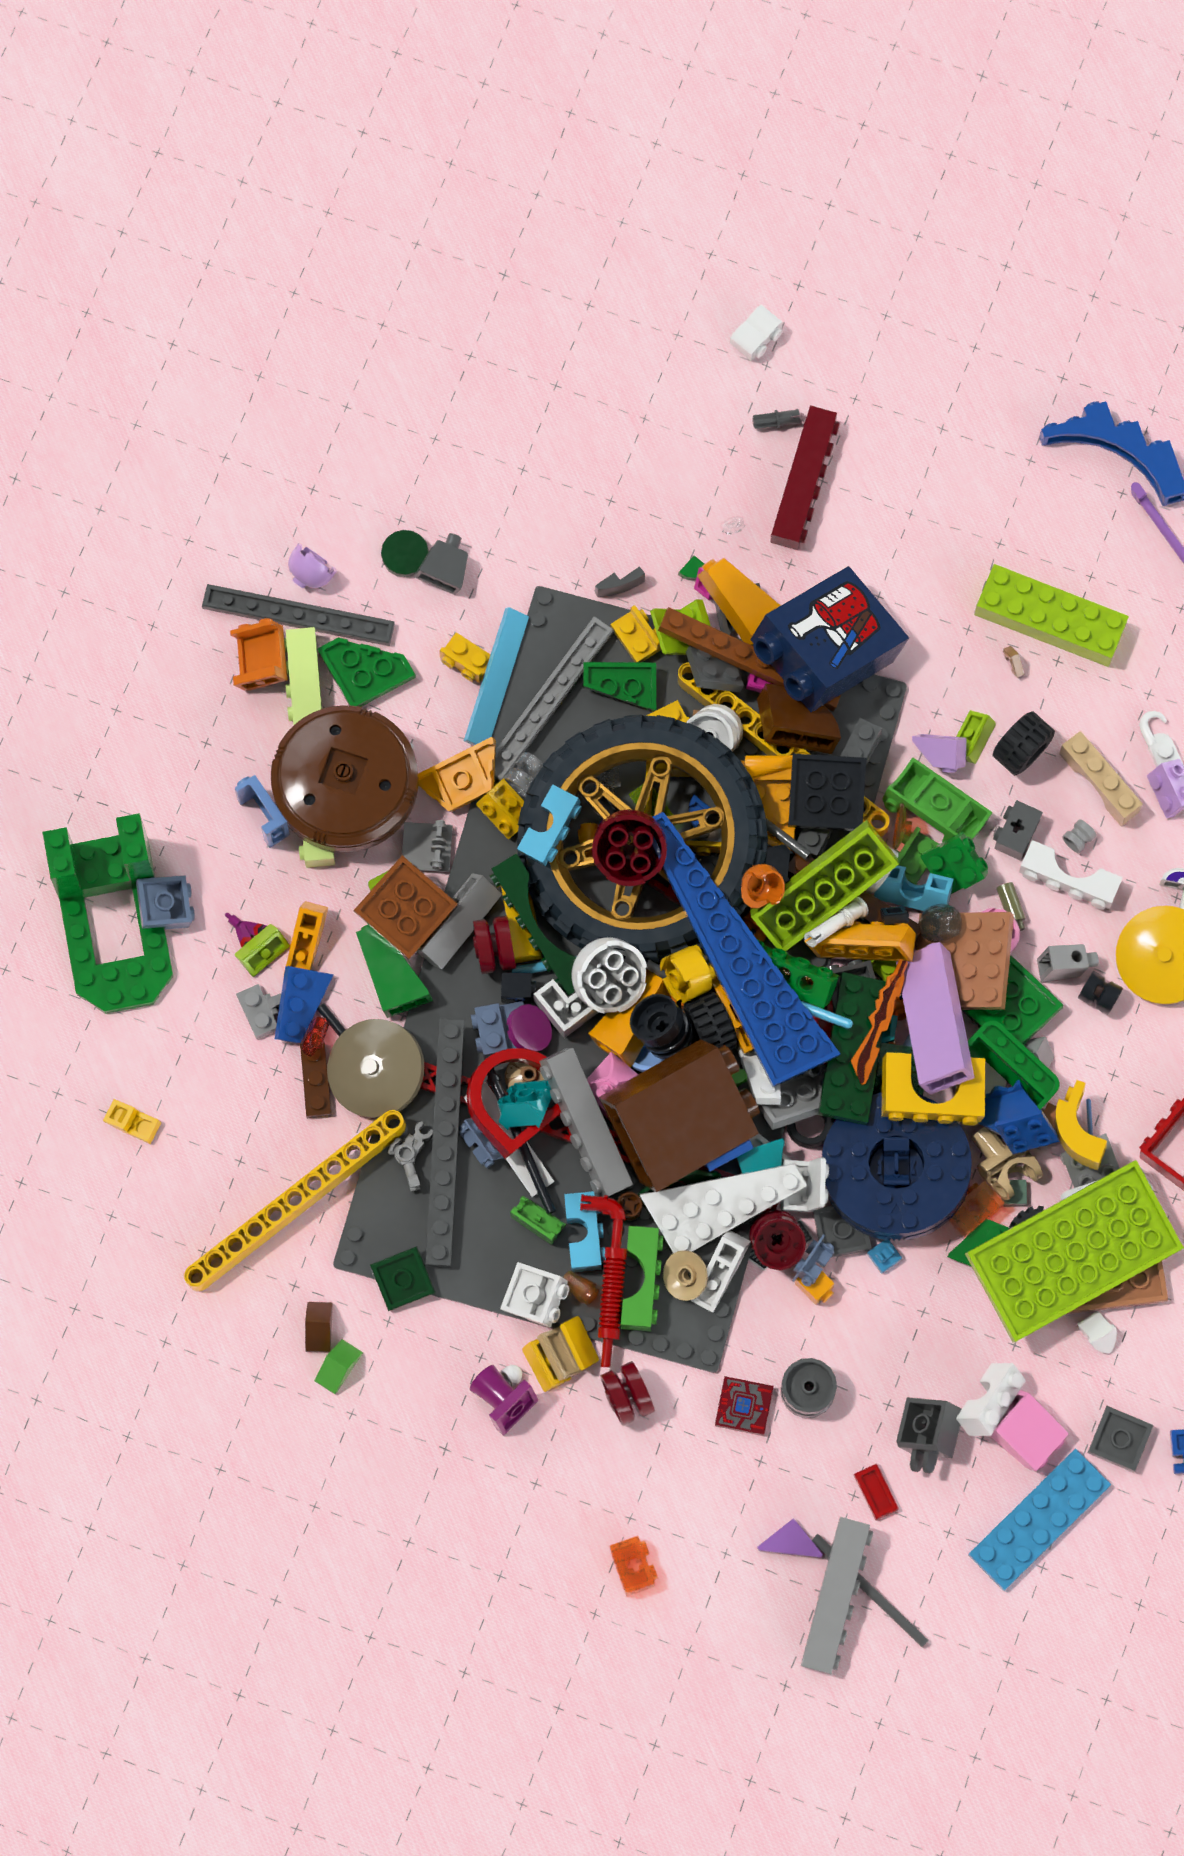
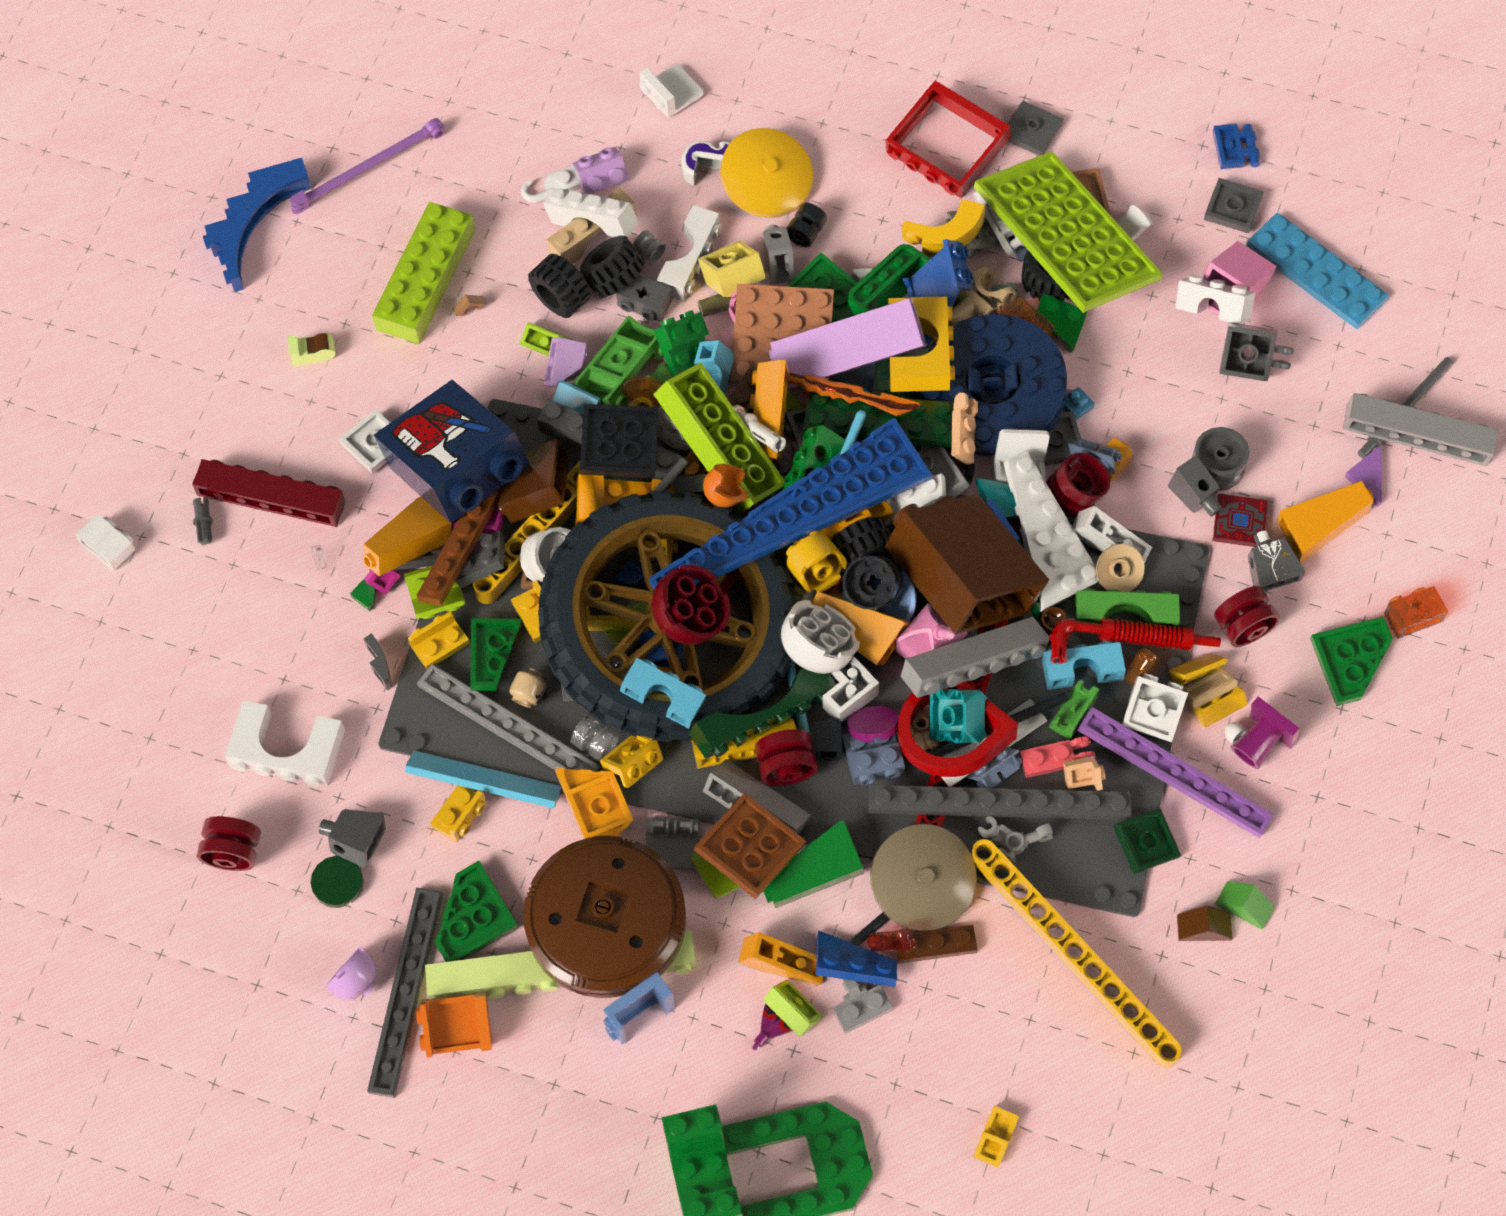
camera: 90 degrees left, 10 degrees down
(165, 902) = (746, 1110): sand blue plate -> none
(434, 455) = (228, 843): none -> dark red wheel
(469, 1310) = (1175, 772): none -> medium lavender plate
(471, 1222) = (1083, 773): none -> light nougat bracket
(491, 1197) = (1051, 757): none -> coral hinge
(535, 470) = (311, 764): none -> white arch
(581, 714) = (528, 688): none -> tan head
(587, 1497) = (1351, 657): none -> green plate
(690, 1429) = (1273, 563): none -> dark grey torso
(738, 1484) = (1321, 519): none -> light orange slope
(784, 1355) = (1195, 487): none -> dark grey torso
(837, 1127) = (963, 428): none -> light nougat hinge
(864, 564) = (362, 444): none -> white plate
(876, 1492) = (1309, 405): red tile -> none
(892, 762) = (573, 397): none -> medium azure slope
(894, 915) = (744, 383): black tile -> none
(940, 923) = (746, 349): clear smoke hair -> none
(965, 509) = (311, 349): none -> yellowish green leg
(1042, 913) = (730, 267): none -> light yellow brick
(1045, 794) = (612, 266): none -> black tyre
(1109, 773) = (611, 215): none -> white arch

